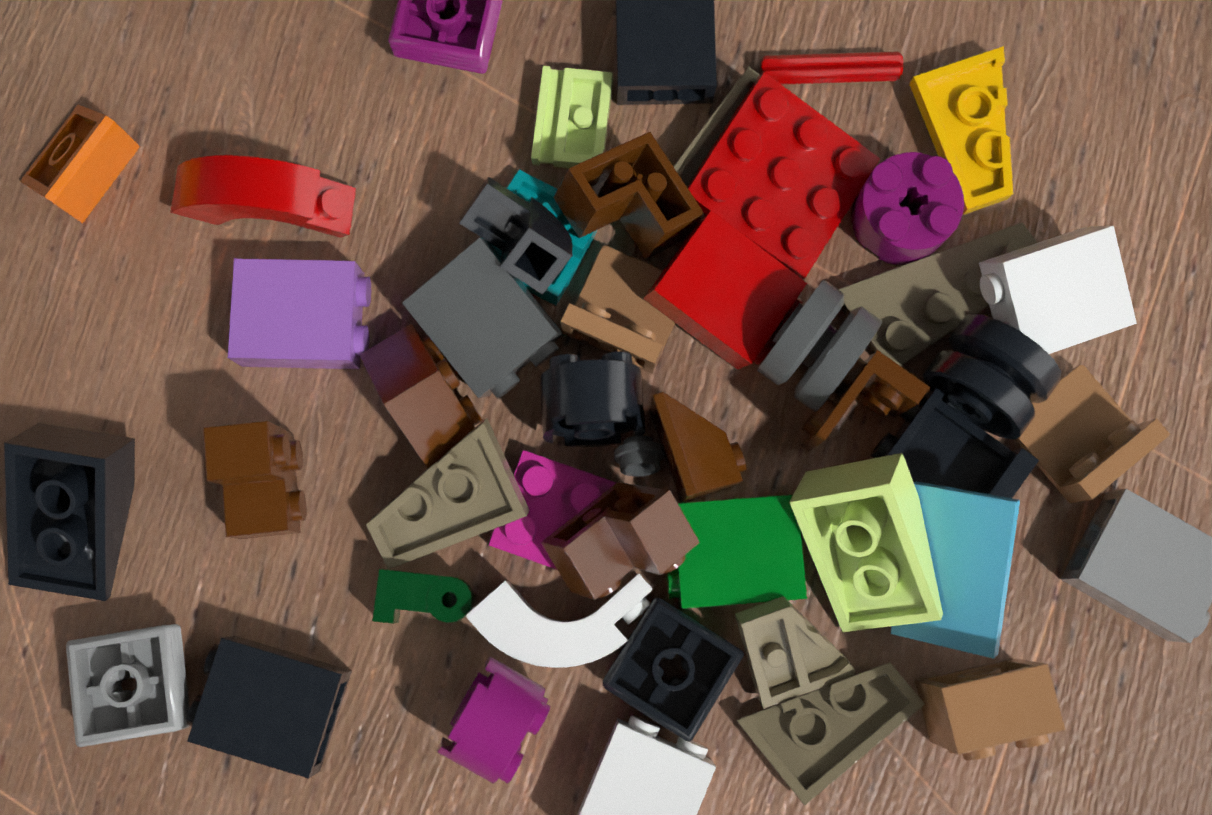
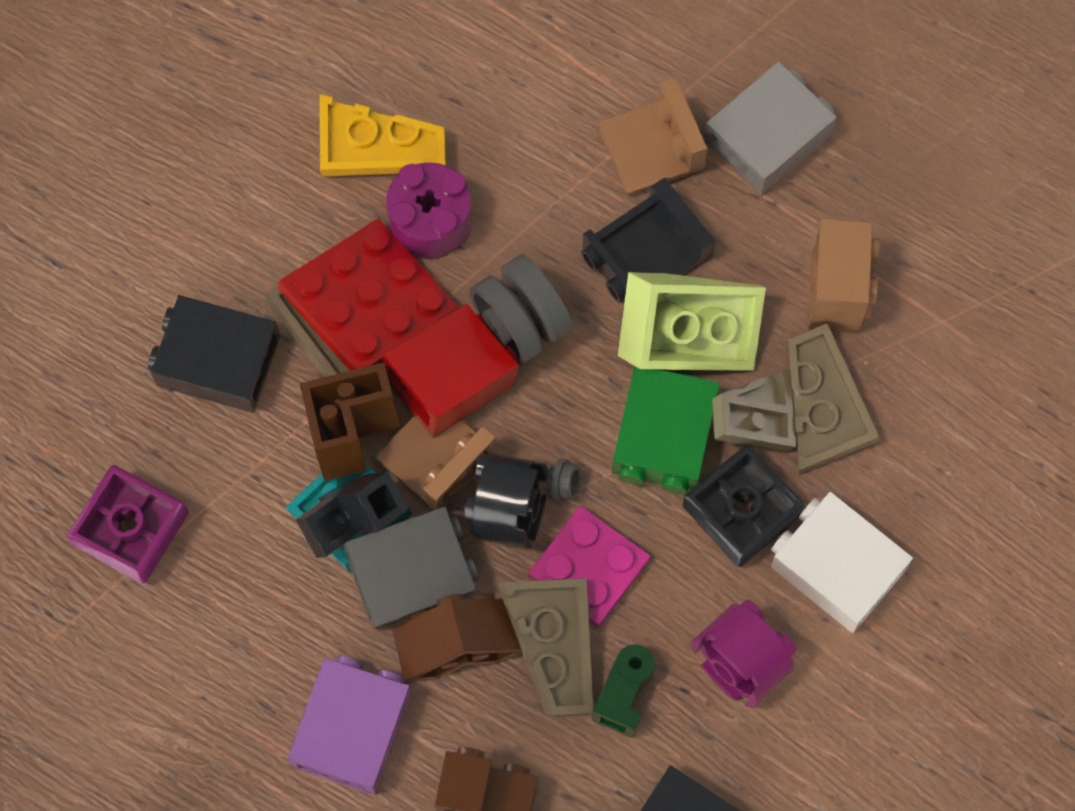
camera: 70 degrees left, 10 degrees down
(261, 188) = (231, 727): red arch -> none
(542, 641) = (682, 612): white arch -> none
(571, 116) = (256, 449): yellowish green plate -> none
(620, 532) = (623, 508): reddish brown brick -> none
(695, 450) = (575, 433): reddish brown slope -> none
(833, 67) = (286, 231): red axle -> none
(884, 388) = (570, 275): reddish brown bracket -> none
(929, 295) = (504, 204): dark tan wing -> none
(971, 558) = (726, 250): medium azure tile -> none
(993, 375) = (588, 188): black wheel -> none
(1061, 288) = (537, 121): white brick -> none

